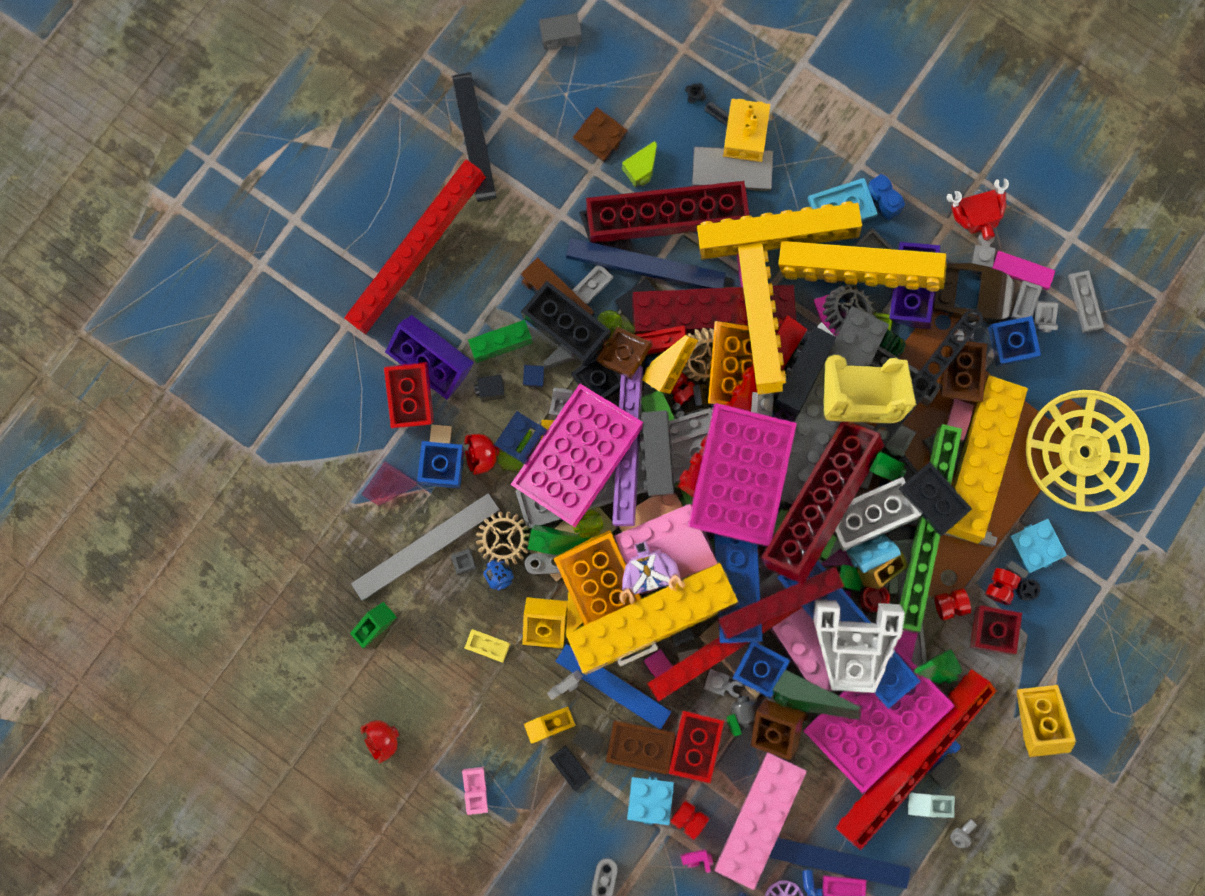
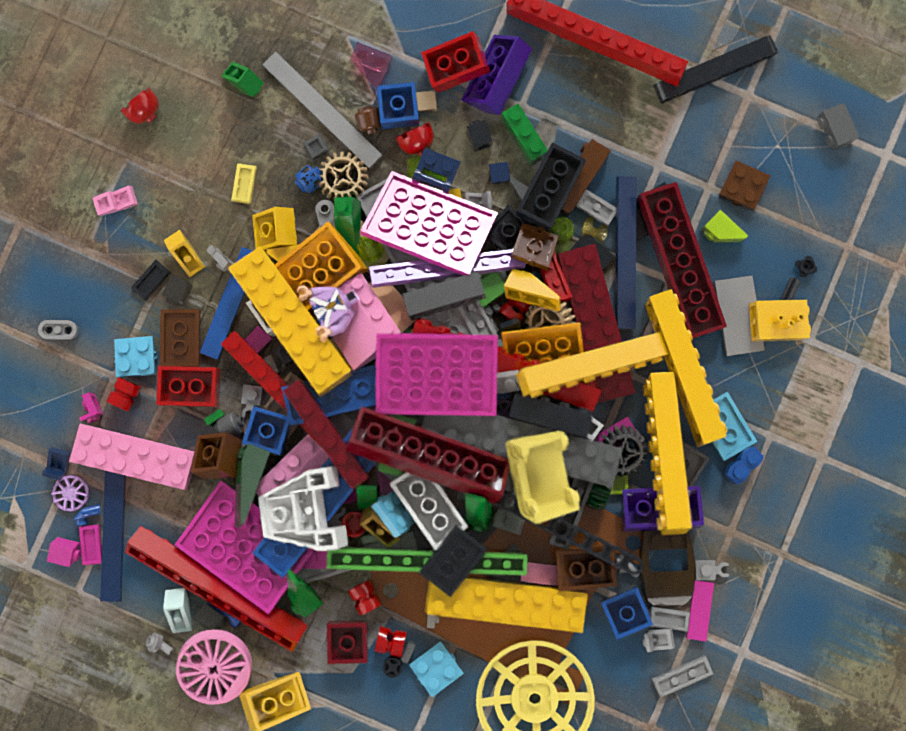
camera: 70 degrees right, 5 degrees up
(447, 499) = (368, 119): none -> reddish brown head
(612, 298) = (600, 233): none -> clear yellow piece
(980, 211) = (748, 558): red torso -> none
(998, 776) = (222, 672): none -> bright pink piece

